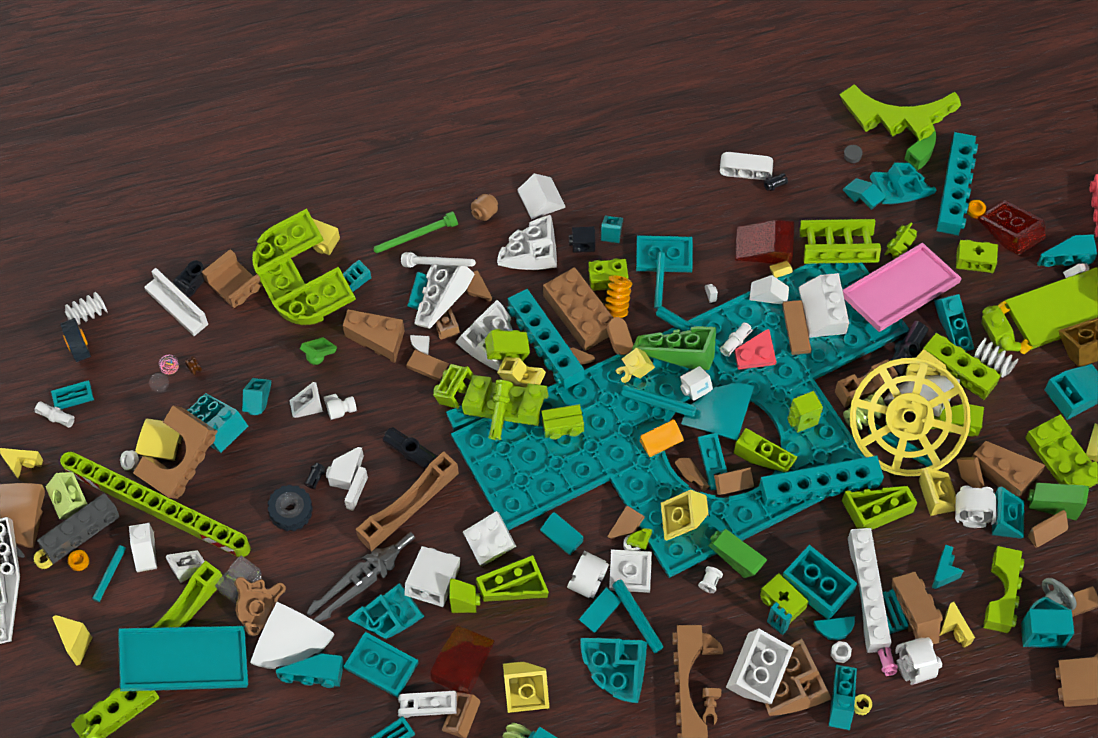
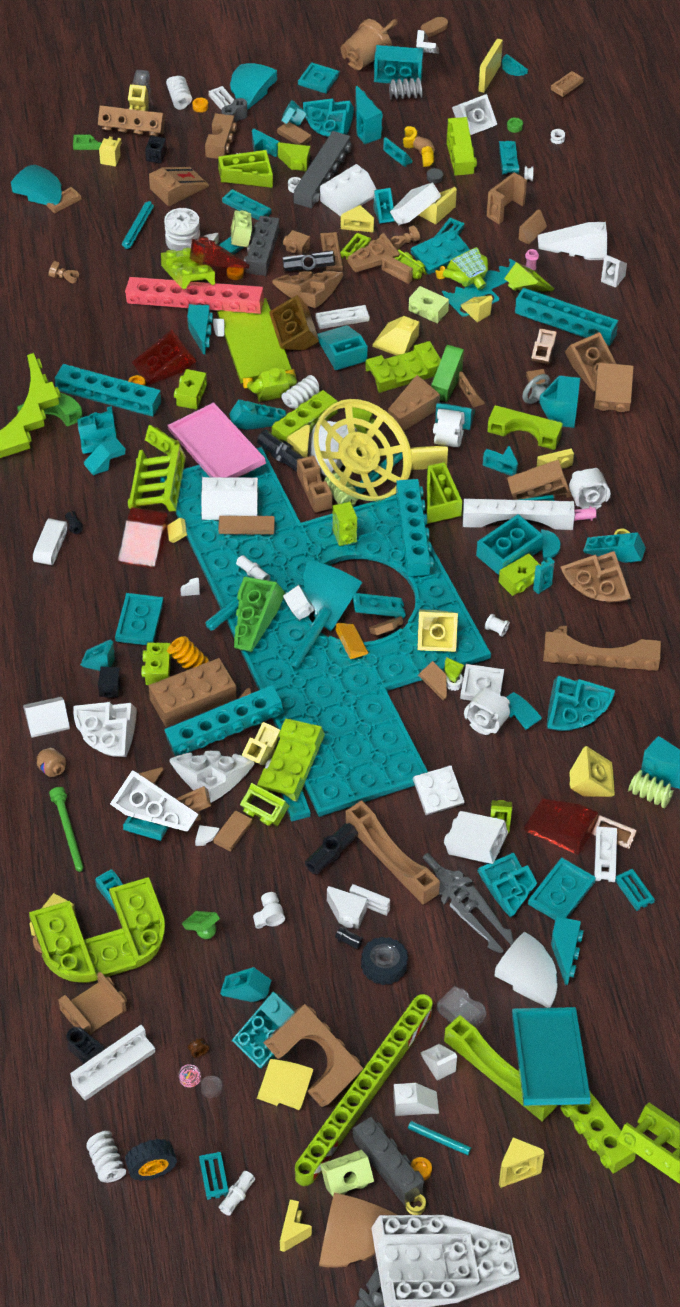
camera: 85 degrees left, 10 degrees down
(129, 460) = (308, 1113): white tile -> none
(256, 603) = (491, 992): medium nougat tile -> none
(306, 402) = (261, 937): white slope -> none
(375, 332) = (189, 869): medium nougat wedge -> none
(409, 259) = (103, 833): white piece -> none
(500, 399) = (296, 756): lime pin -> none
(506, 344) = (228, 751): lime brick -> none
(513, 582) = (487, 770): lime wedge -> none
(562, 421) = (323, 711): lime brick -> none
(562, 533) = (437, 733): teal slope -> none
(619, 336) = (235, 657): medium nougat tile -> none
(636, 364) = (271, 645): light yellow brick -> none
(637, 616) = (527, 682): teal axle -> none
(659, 280) = (171, 624): teal bar -> none
(710, 695) = (607, 639): medium nougat piece -> none
(734, 481) = (401, 593): medium nougat tile -> none
(736, 553) = (480, 594): bright green slope -> none
(756, 352) = (269, 557): coral wing -> none
(760, 667) = (586, 598): white slope -> none
(763, 452) = (376, 566): lime slope -> none
(769, 290) = (203, 540): white slope -> none
(841, 652) = (573, 543): white tile -> none
(852, 153) = (53, 461): dark grey tile -> none
(971, 471) = (413, 429): medium nougat tile -> none

